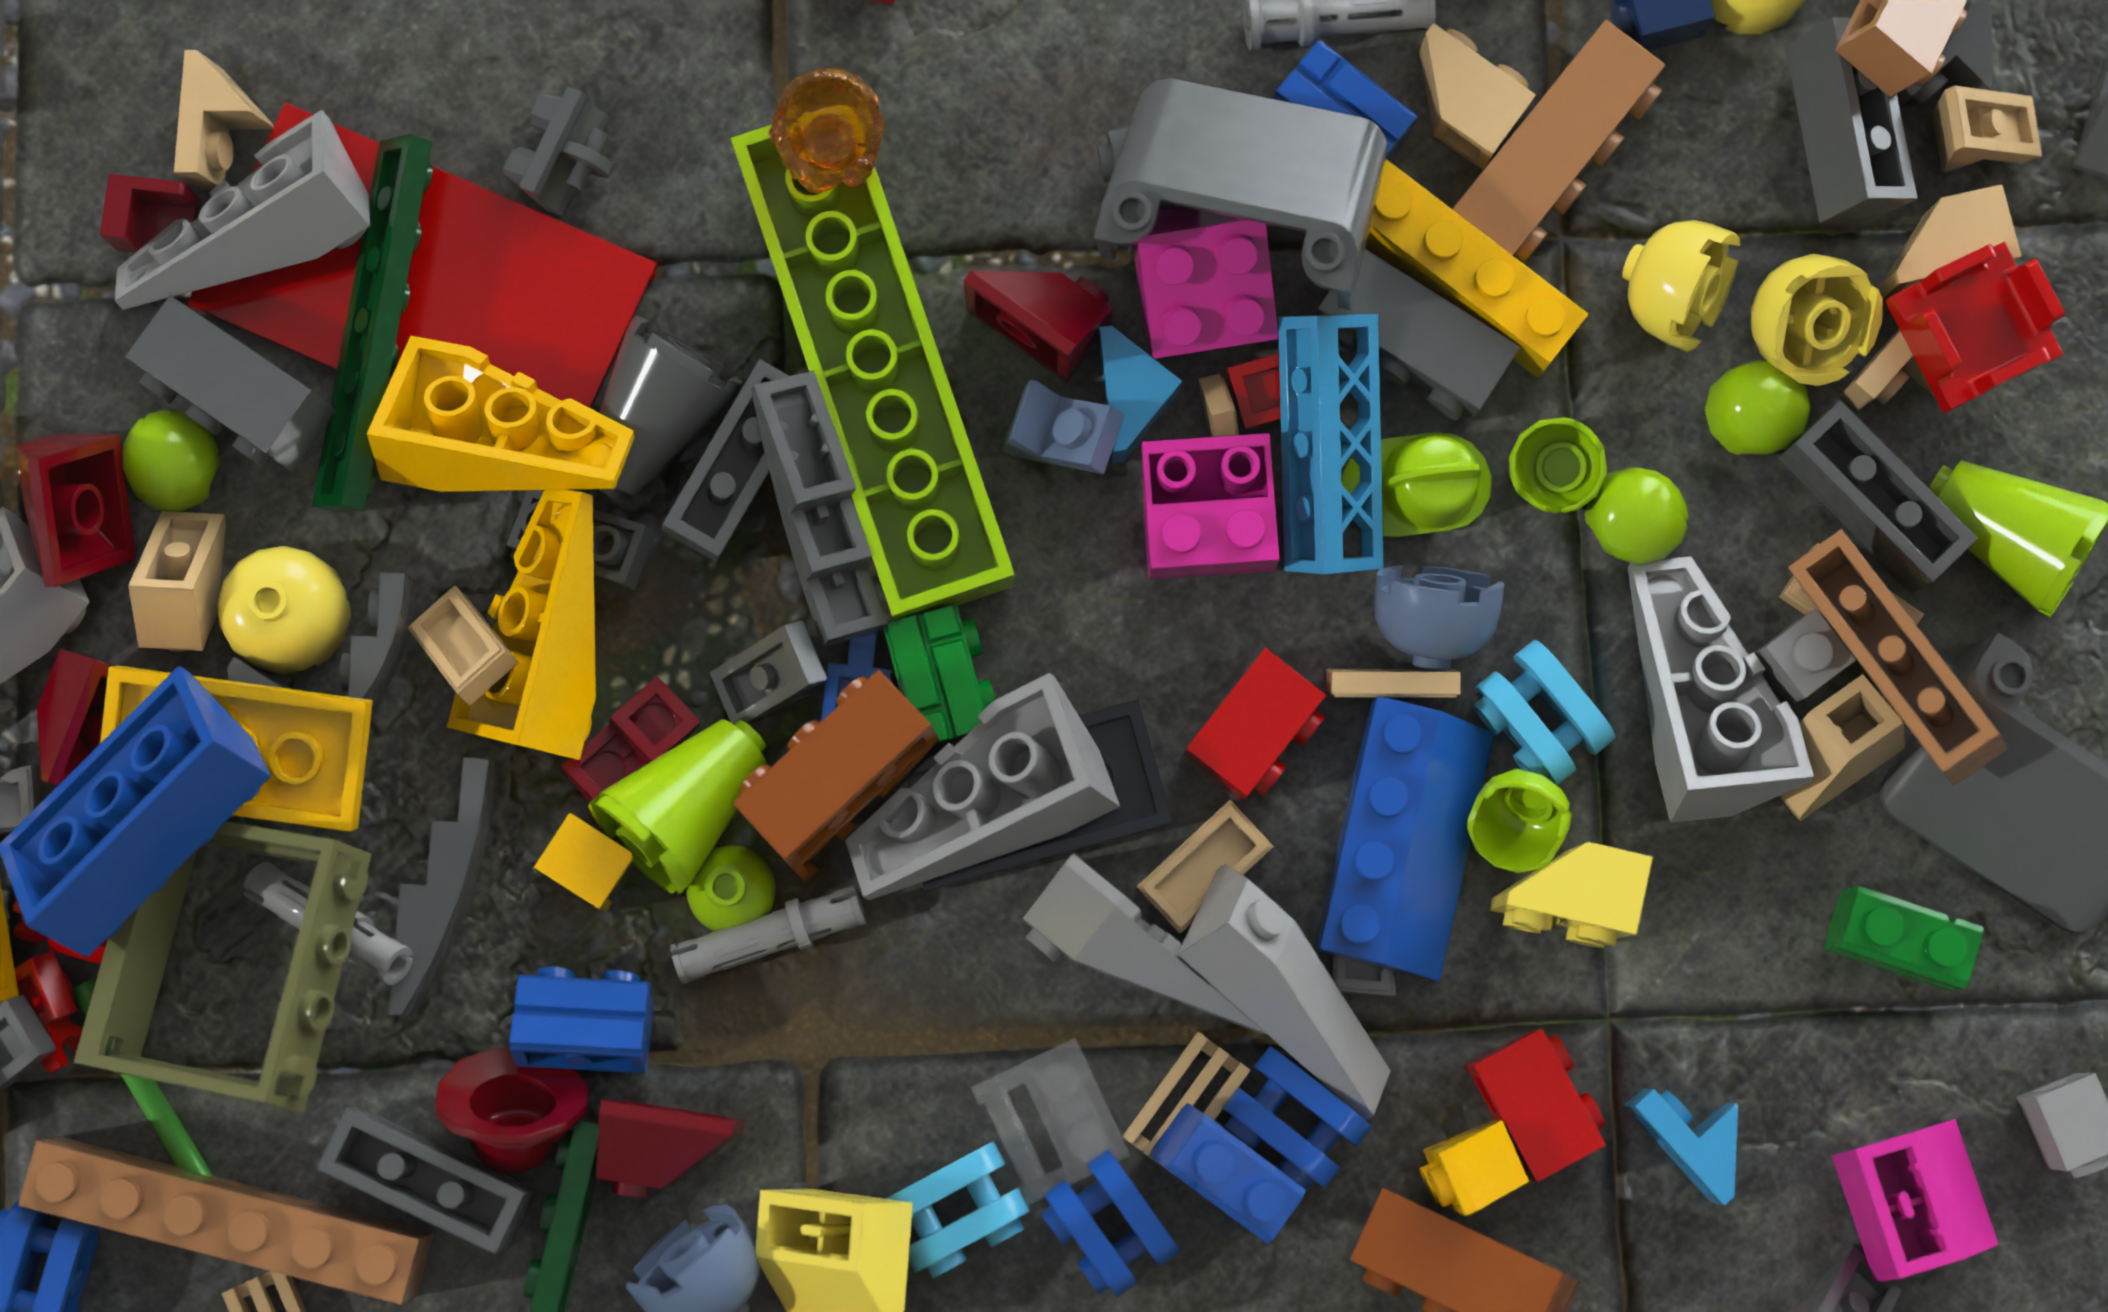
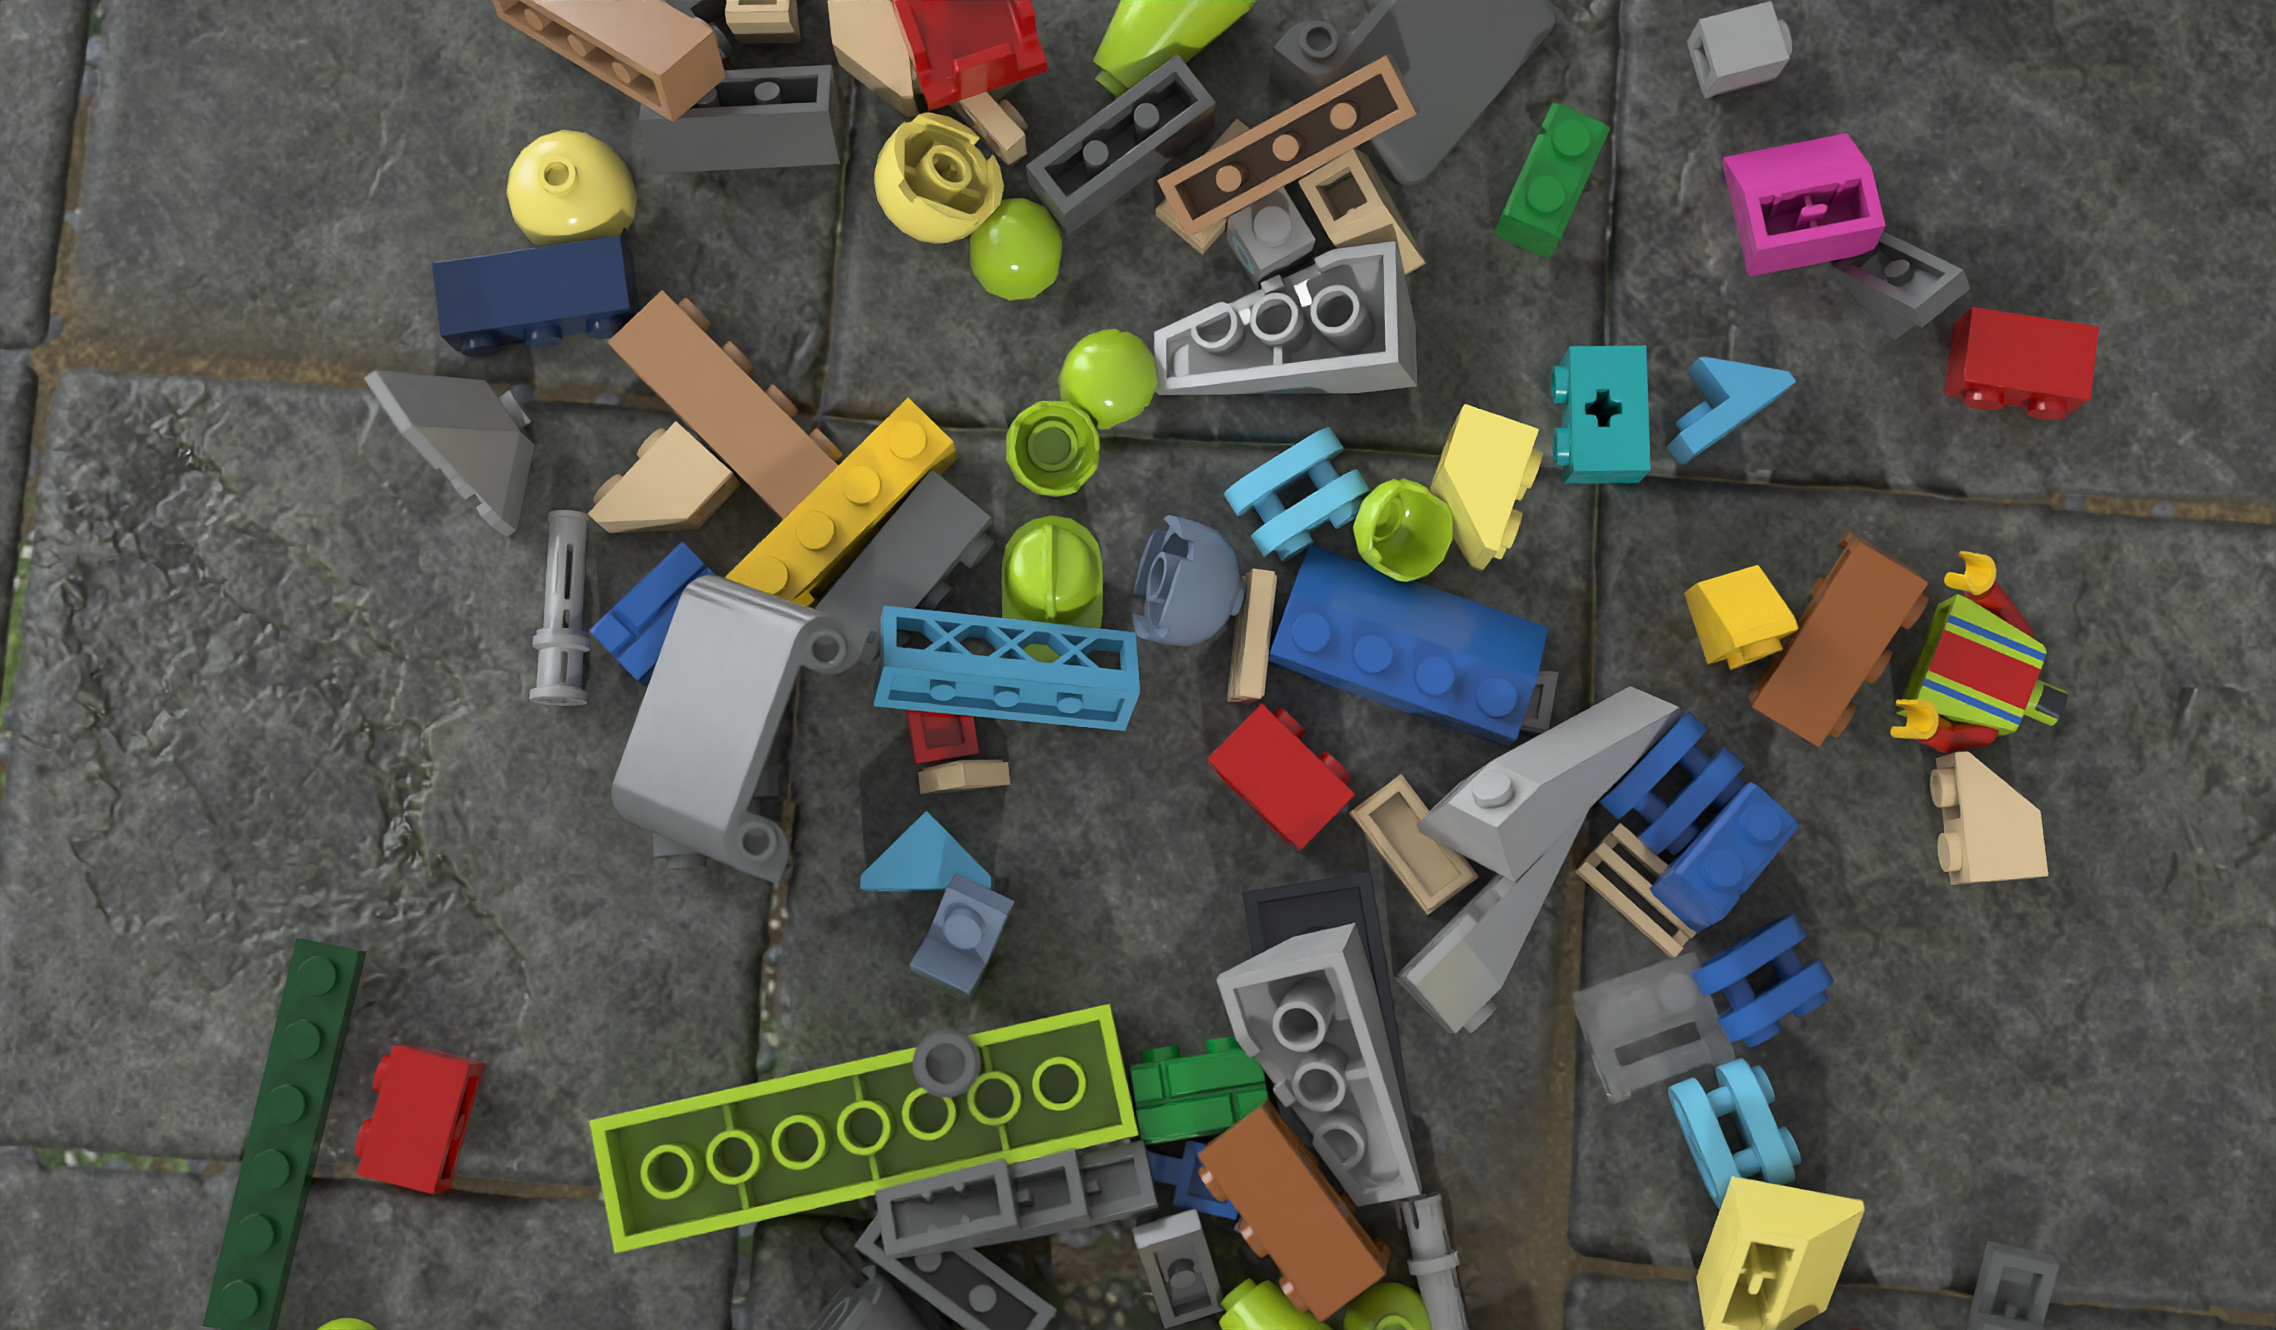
camera: 80 degrees left, 0 degrees up
(828, 129) = (623, 1149): clear orange hair -> none
(940, 424) = (946, 1063): none -> dark grey tile
(1040, 314) = (837, 944): dark red slope -> none
(1204, 283) = (832, 776): dark pink brick -> none
(1209, 506) = (1054, 798): dark pink slope -> none
(1535, 1099) = (1679, 547): red brick -> none
(1680, 280) = (880, 306): light yellow cylinder -> none
(1704, 1009) = (1619, 384): none -> teal brick

